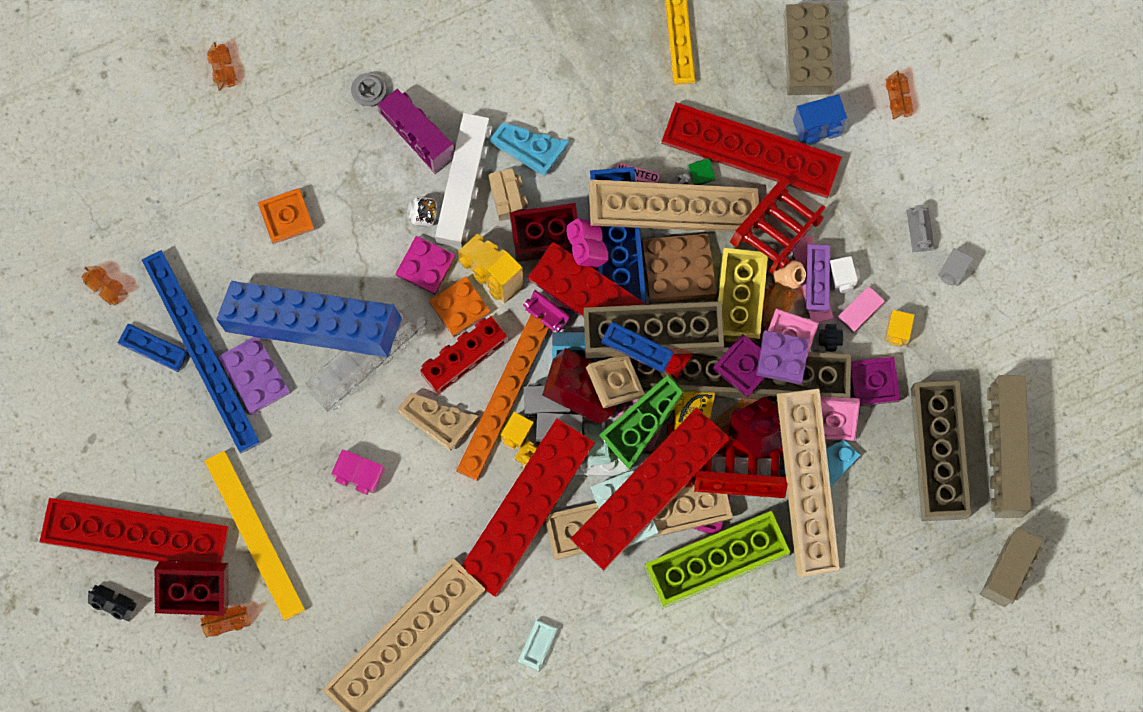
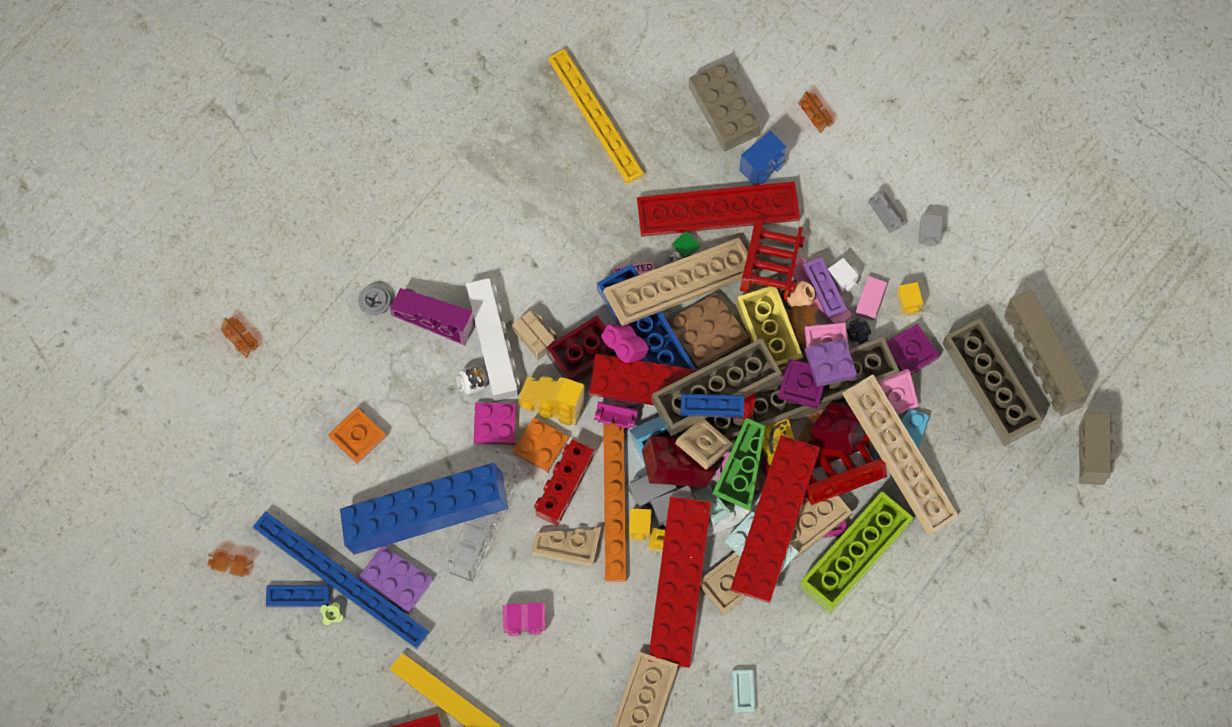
camera: 25 degrees left, 5 degrees down
(171, 384) = (336, 617): none -> yellowish green plate
(531, 149) = (536, 288): medium azure wing -> none

